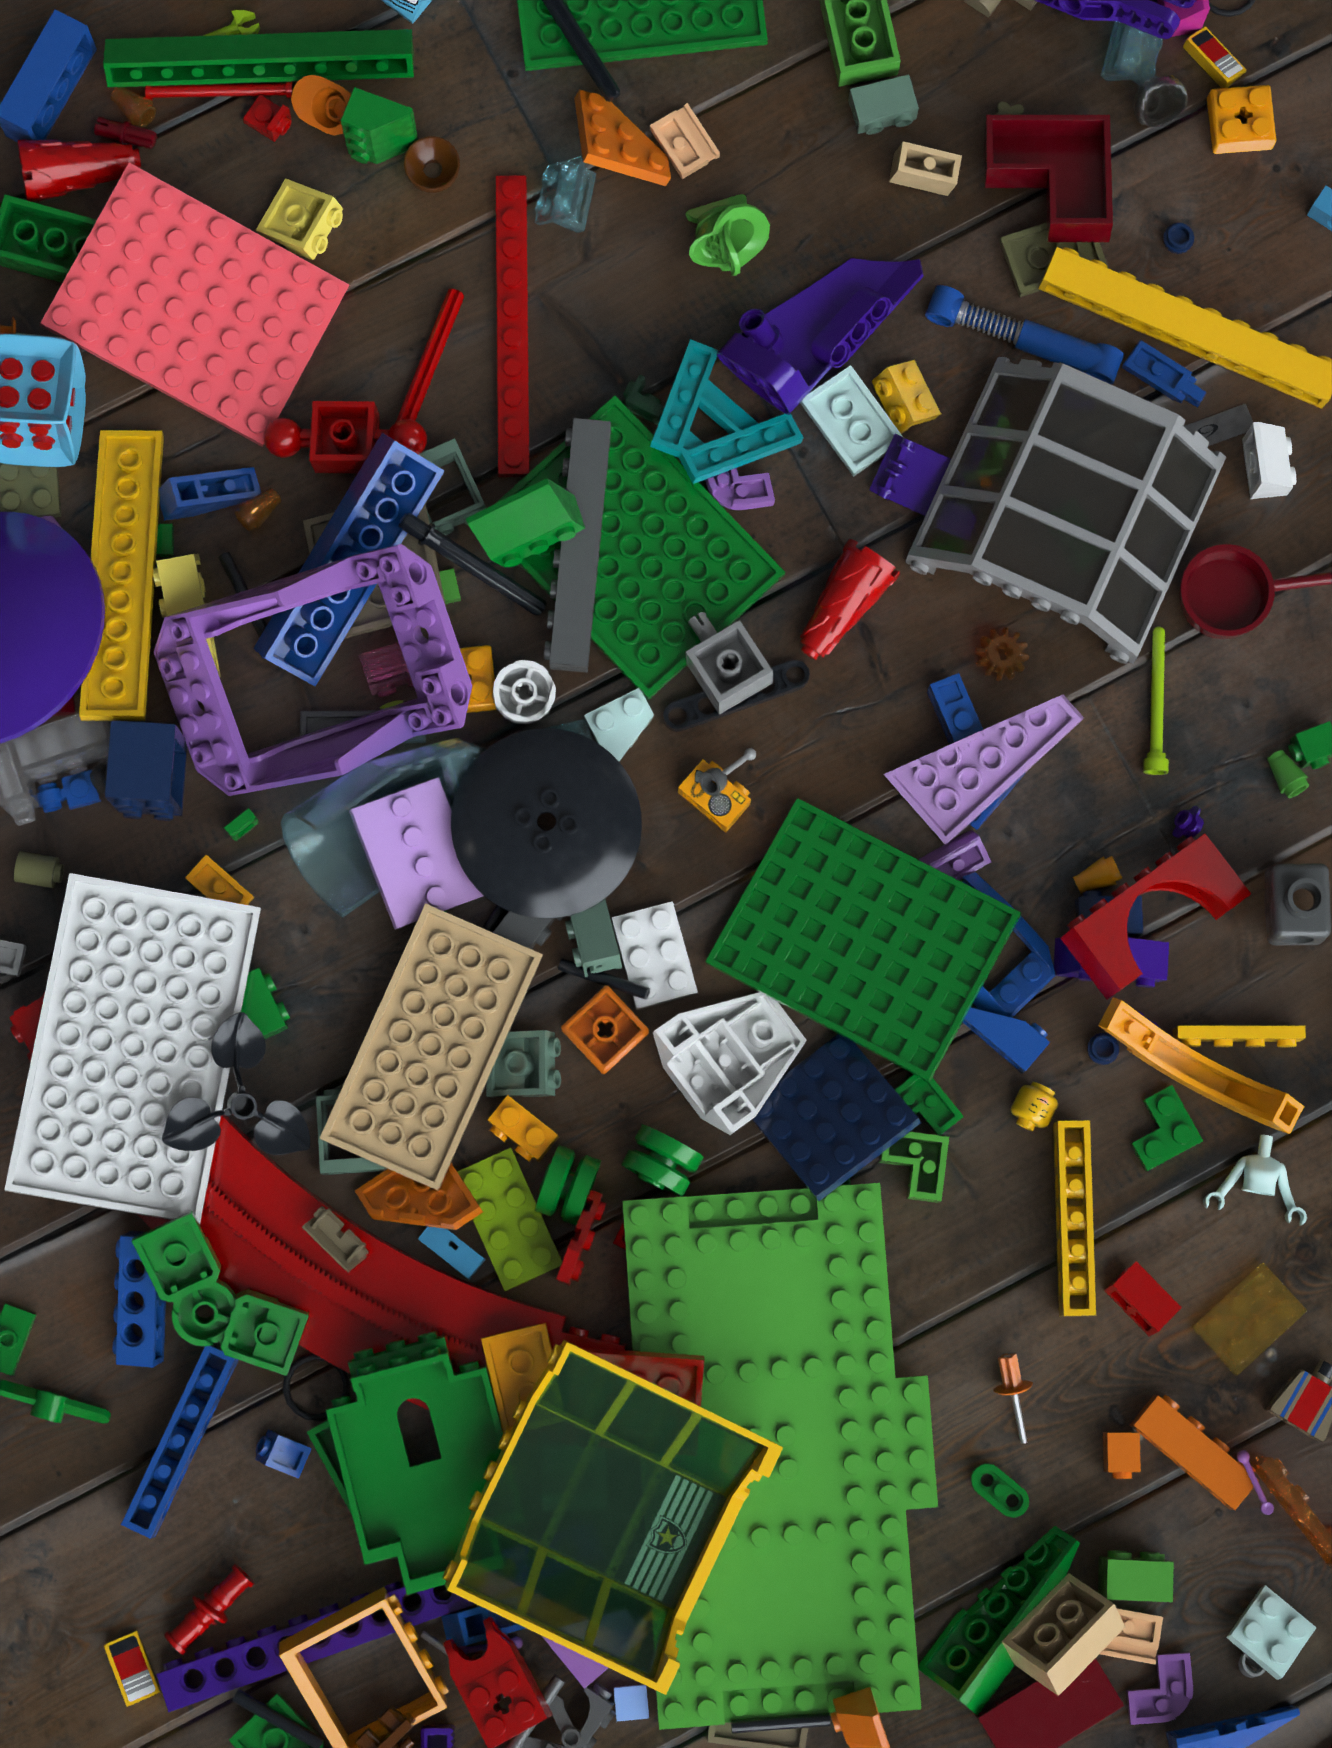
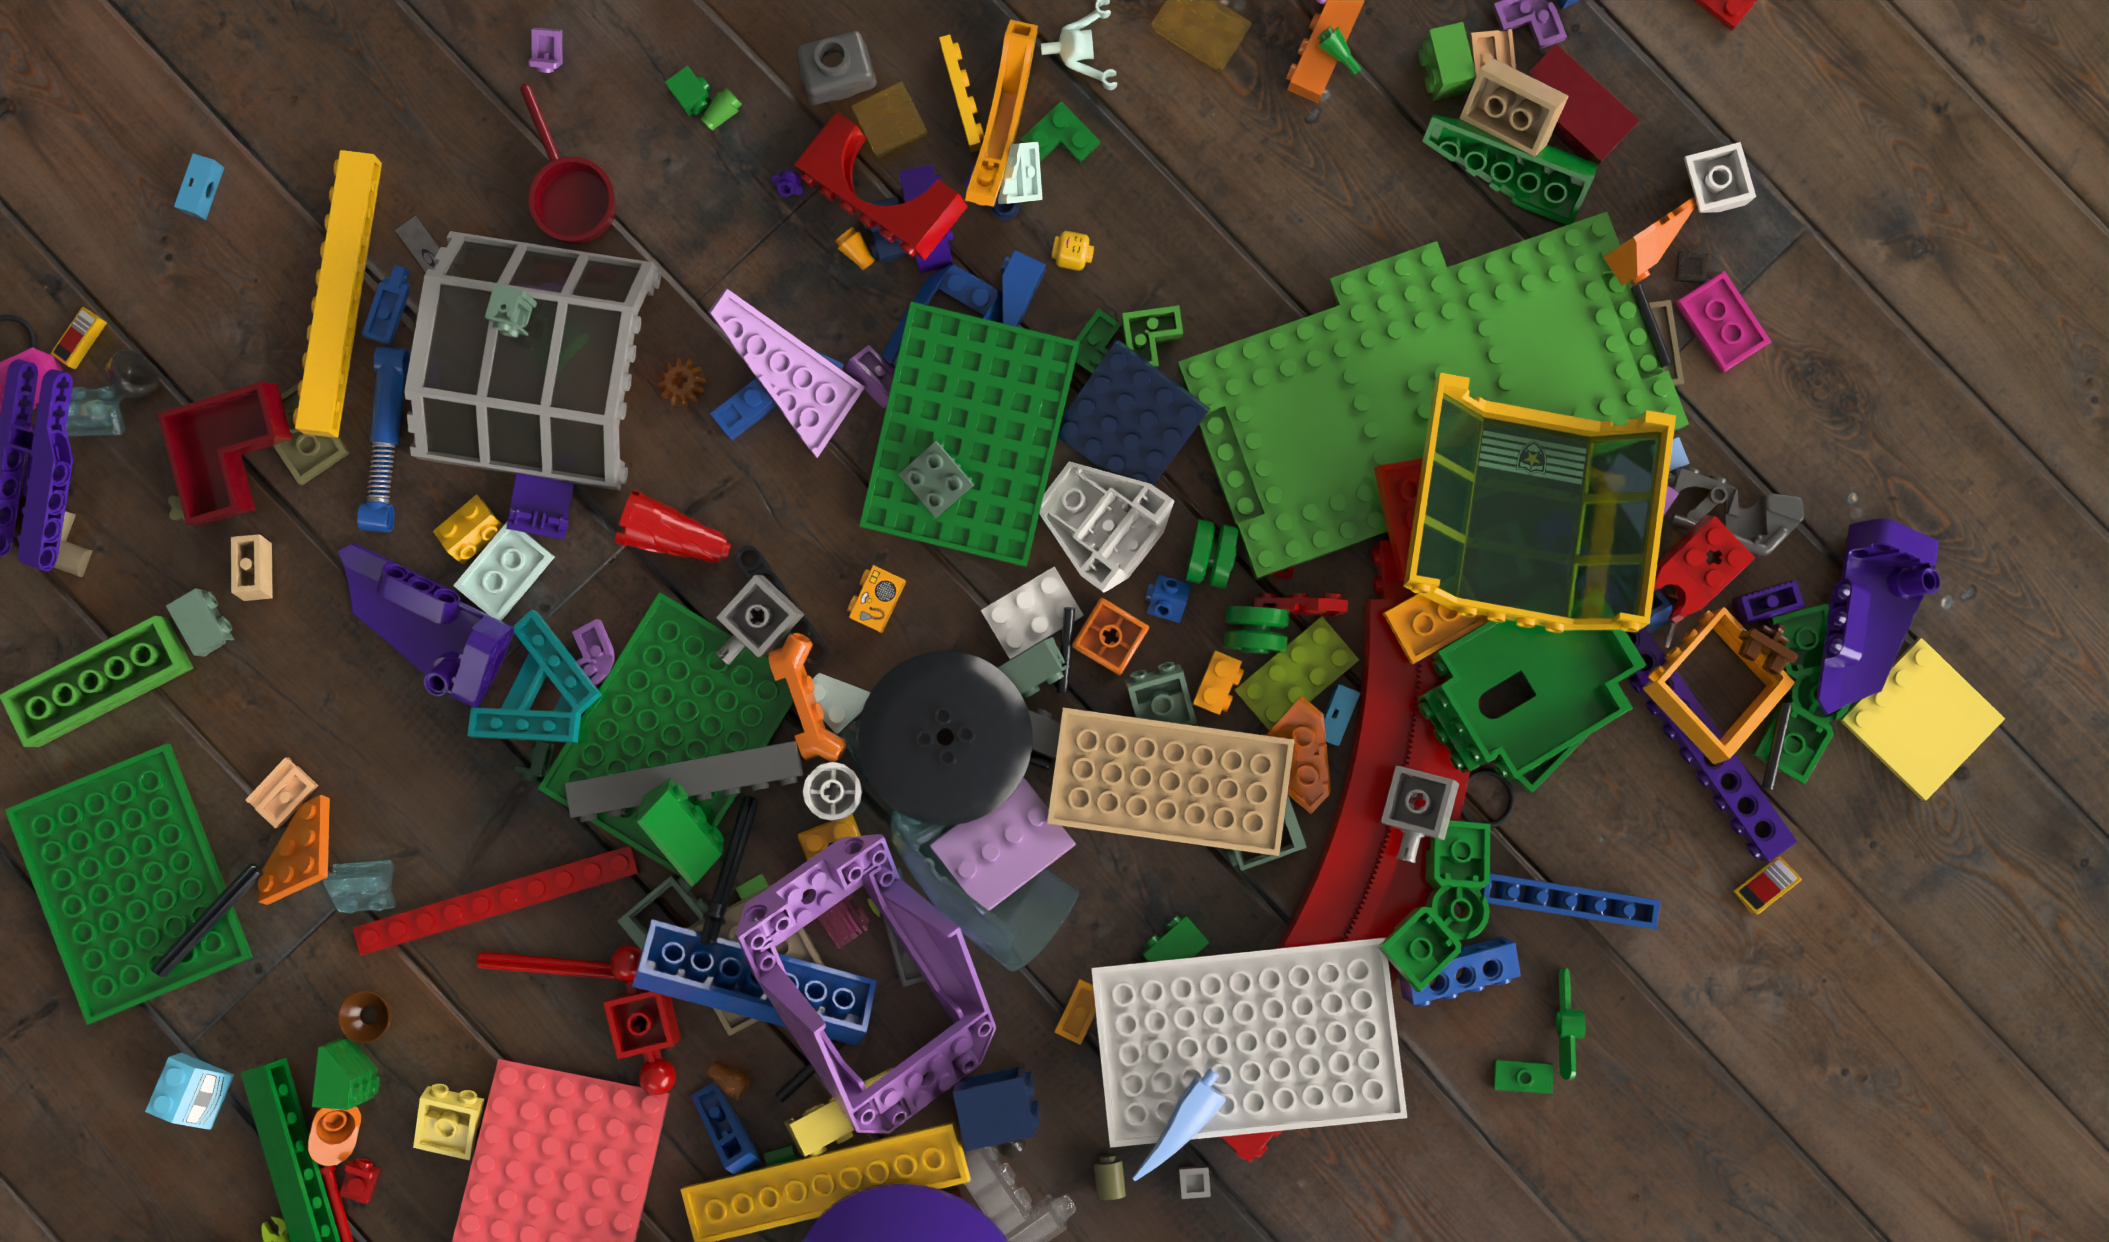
camera: 100 degrees left, 5 degrees up
(76, 790) = (1028, 1165): blue plate -> none
(76, 963) = (1191, 1113): none -> light blue piece
(191, 1123) = (1283, 894): black plant -> none
(209, 1609) = (1700, 832): red piece -> none
(241, 824) = (1019, 1008): green tile -> none
(282, 1453) = (1551, 810): blue bracket -> none
(311, 1291) = (1418, 822): none -> light grey brick
(342, 1247) = (1361, 822): dark tan hinge -> none
(628, 1102) = (1167, 598): none -> blue brick
(669, 683) = (789, 664): none -> orange plate
(720, 777) = (861, 596): dark grey hinge -> none
(728, 233) = (359, 729): bright green helmet -> none
(823, 890) = (936, 479): none -> sand green hinge
(999, 1490) = (1404, 196): green plate -> none
(1013, 1386) = (1316, 206): orange piece -> none
(1074, 1218) = (1160, 190): yellow brick -> none
(1114, 487) = (509, 310): none -> sand green hinge
(1121, 1454) = (1345, 101): orange brick -> none
(1130, 1073) = (1021, 175): none -> light aqua wing
(1143, 1299) = (1210, 117): red hinge -> none
(1156, 760) = (739, 225): lime piece -> none
(1178, 238) = (257, 326): dark blue plate -> none
(1184, 1455) = (1335, 45): none -> green cone
(1227, 132) = (146, 305): light orange brick -> none
(1229, 950) = (889, 120): none -> clear yellow plate
(1268, 461) = (443, 195): white slope -> none

